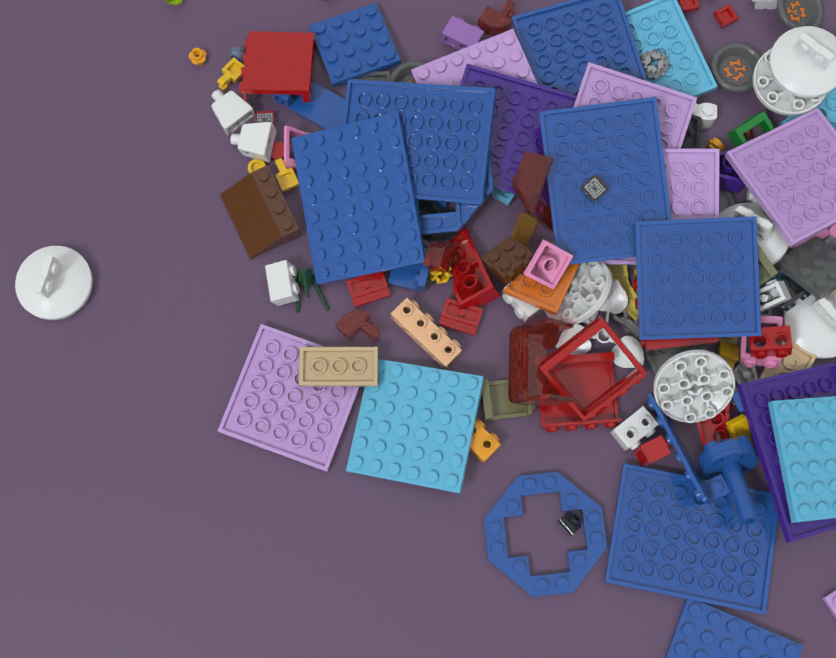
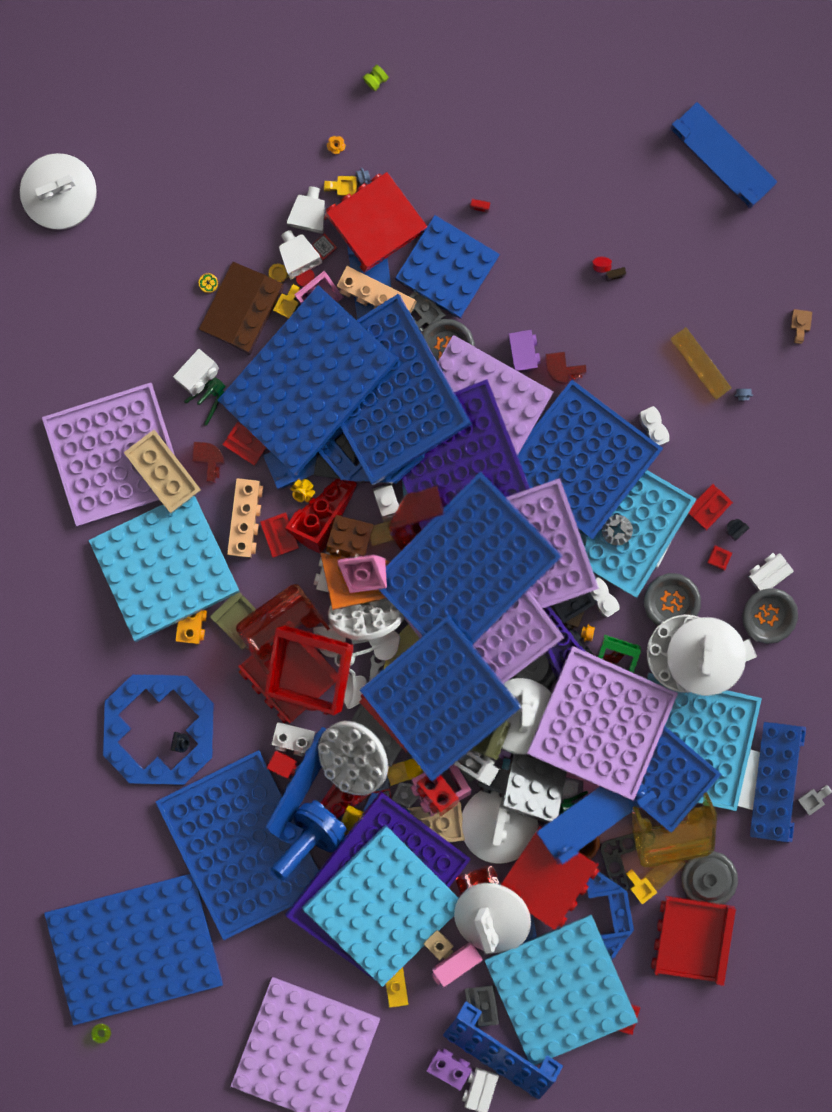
camera: 55 degrees right, 10 degrees up
(221, 224) = (208, 283): none -> tile
(323, 109) = (368, 289): none -> light nougat brick
(440, 256) = (311, 481): clear red brick -> none
(499, 215) = (386, 501): none -> white torso
(594, 188) = (450, 563): tile -> none

